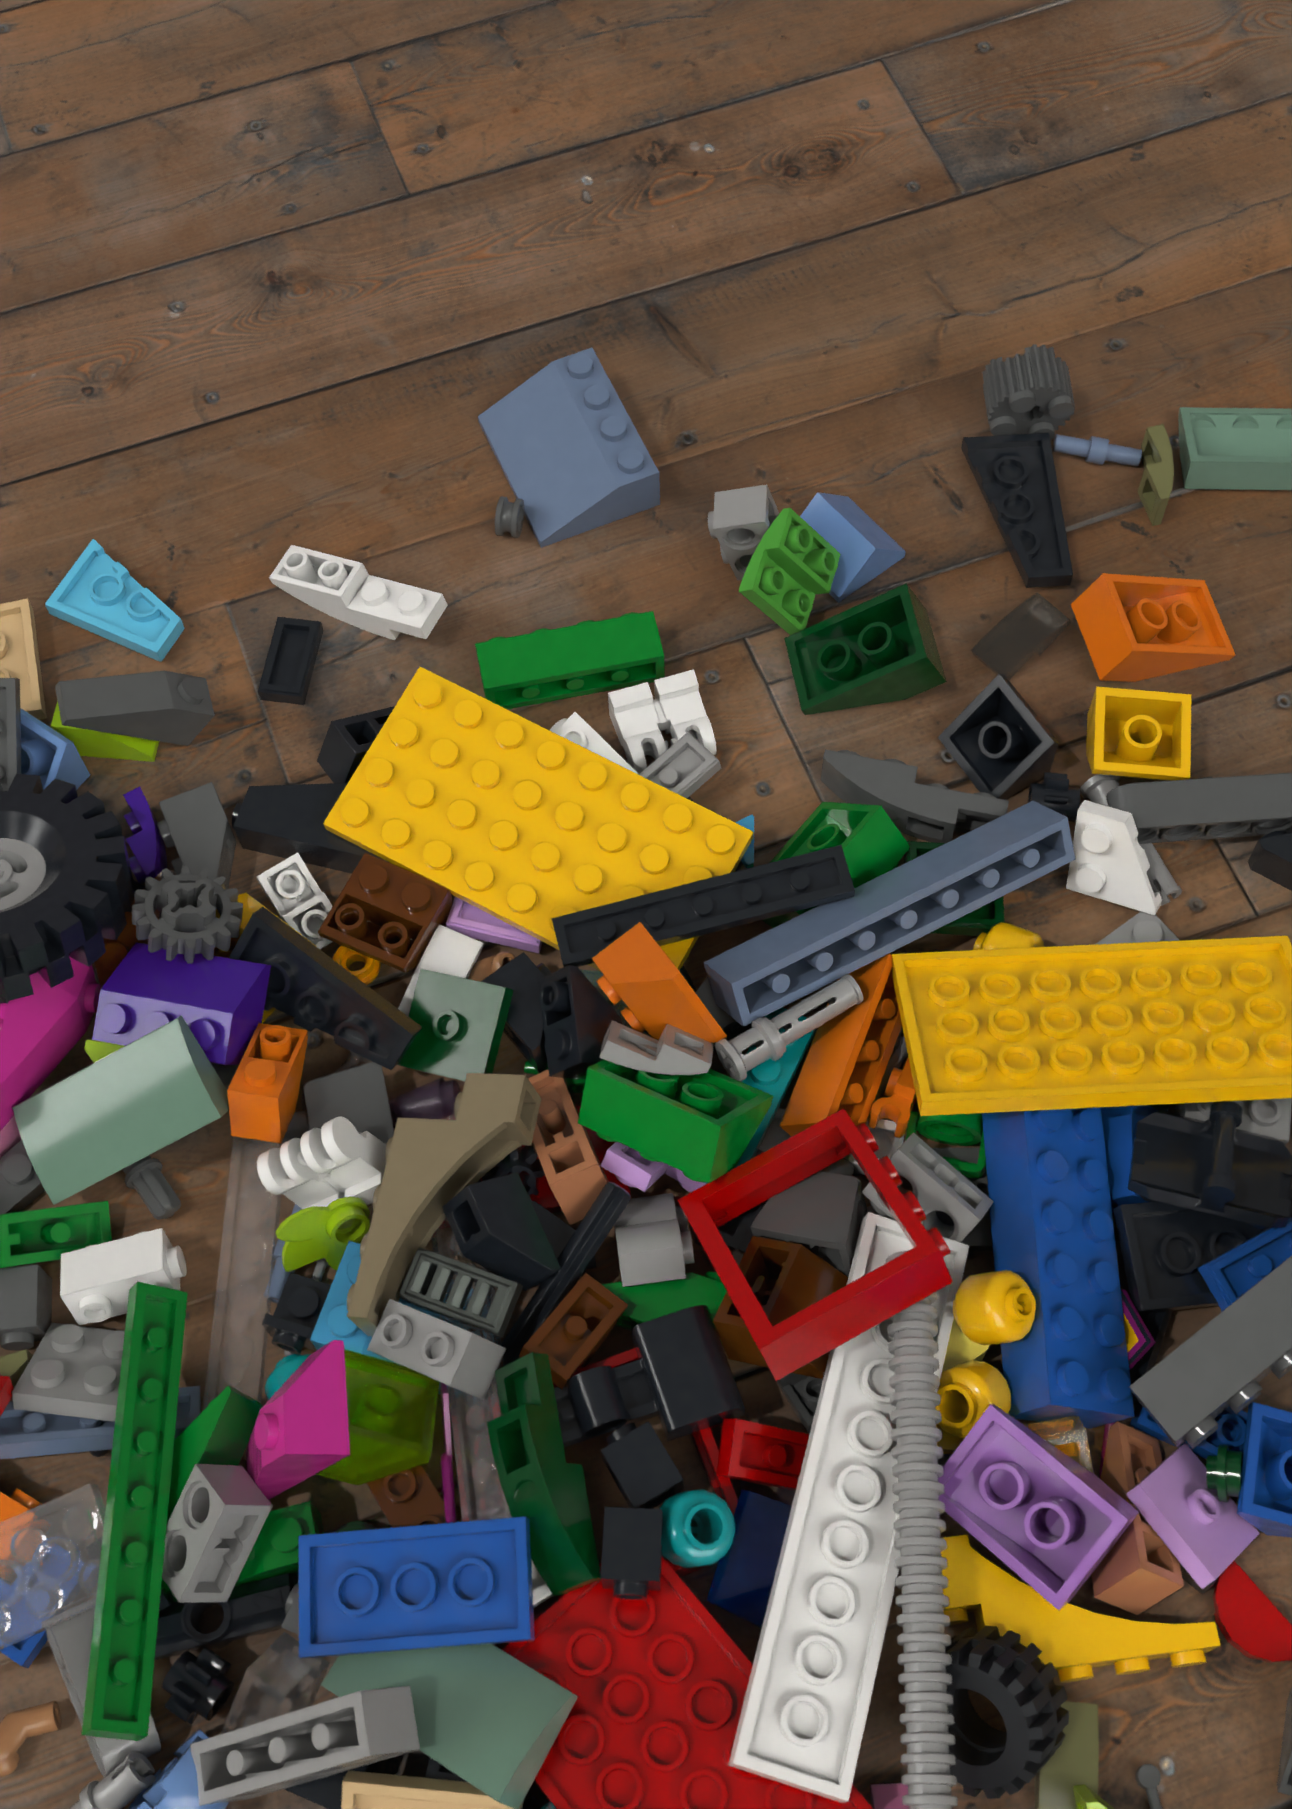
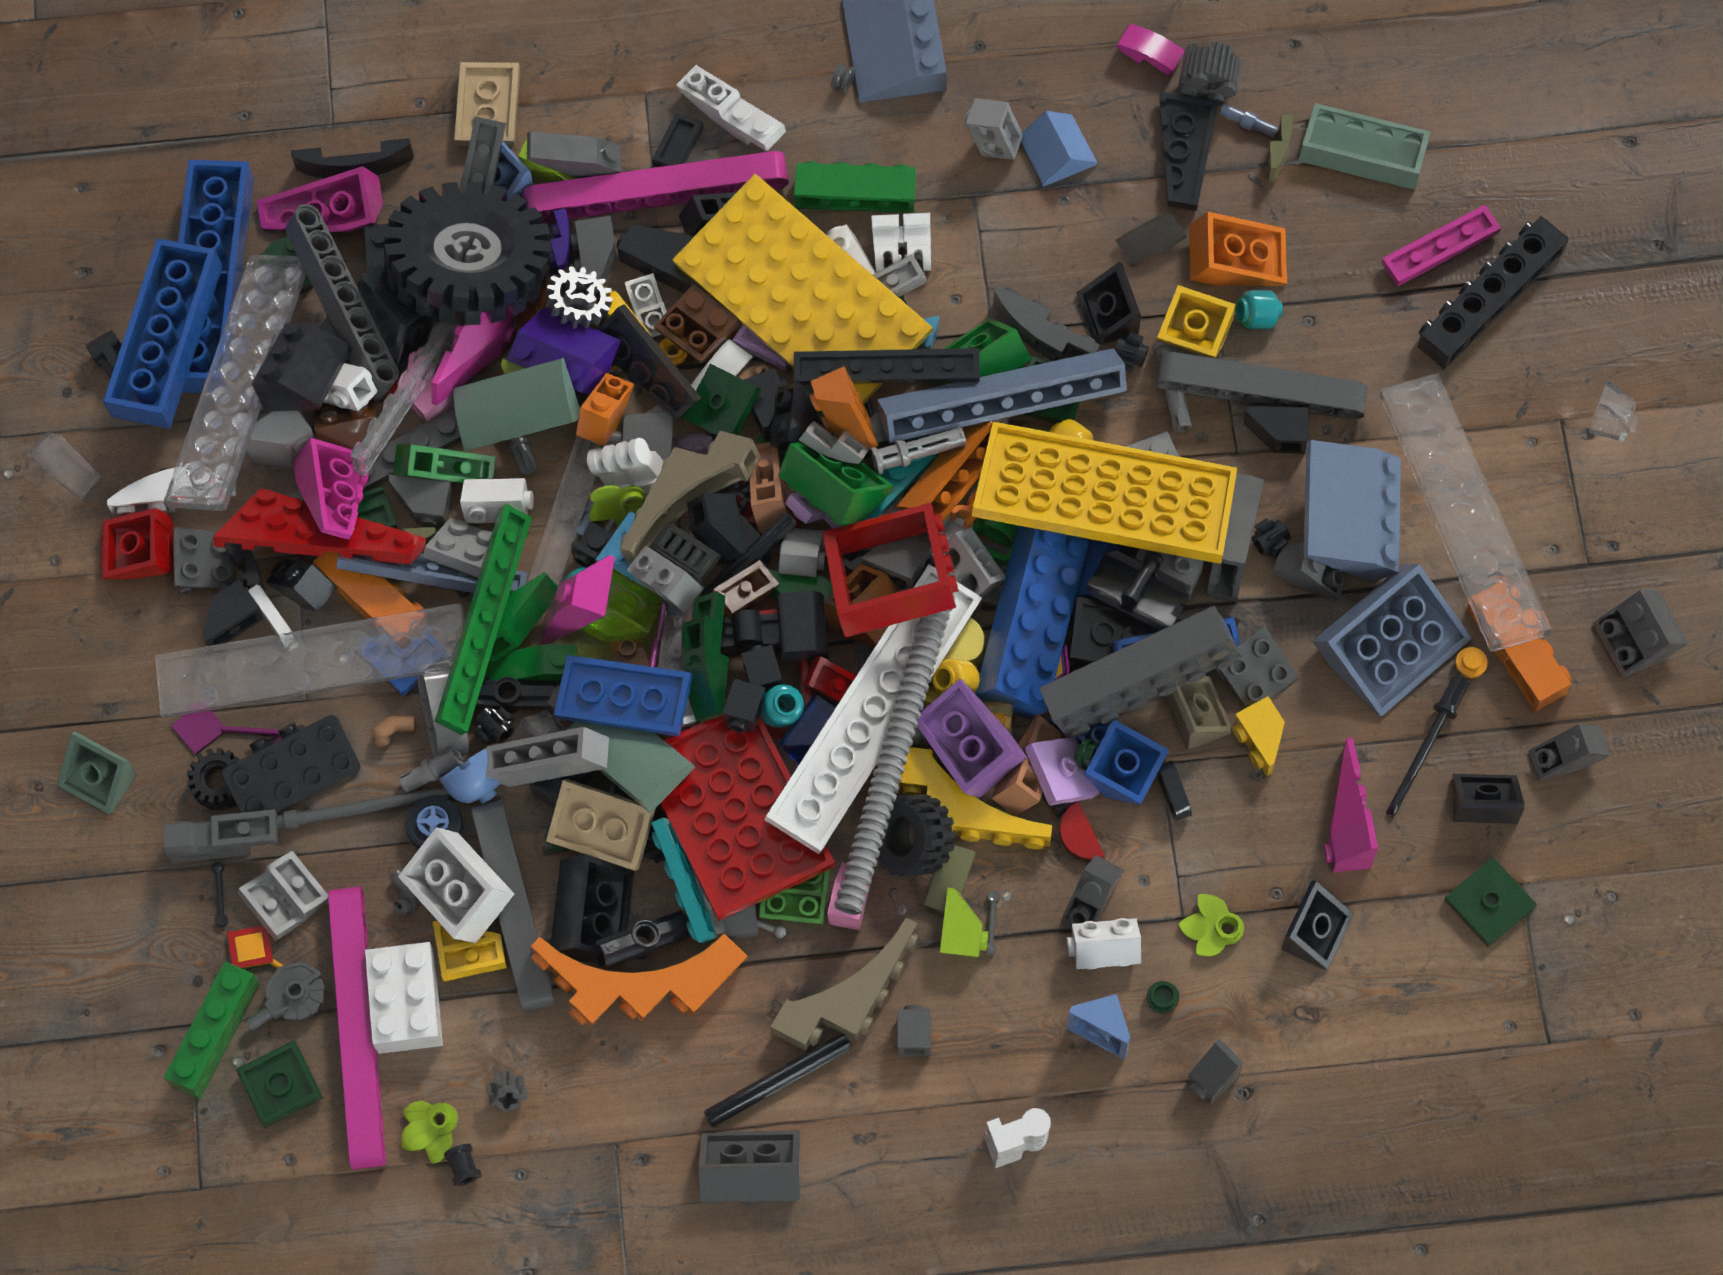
camera: 15 degrees right, 5 degrees up
(112, 604) = (571, 79): medium azure wing -> none
(212, 1532) = (520, 644): light grey brick -> none
(262, 728) = (654, 186): none -> dark pink beam
(789, 571) = (1010, 161): bright green slope -> none
(866, 655) = (1046, 228): dark green slope -> none
(918, 382) = (1144, 44): none -> dark pink slope
(992, 1305) = (982, 632): yellow head -> none
(1110, 860) = (1148, 396): white wing -> none
(1217, 697) = (1258, 309): none -> teal head

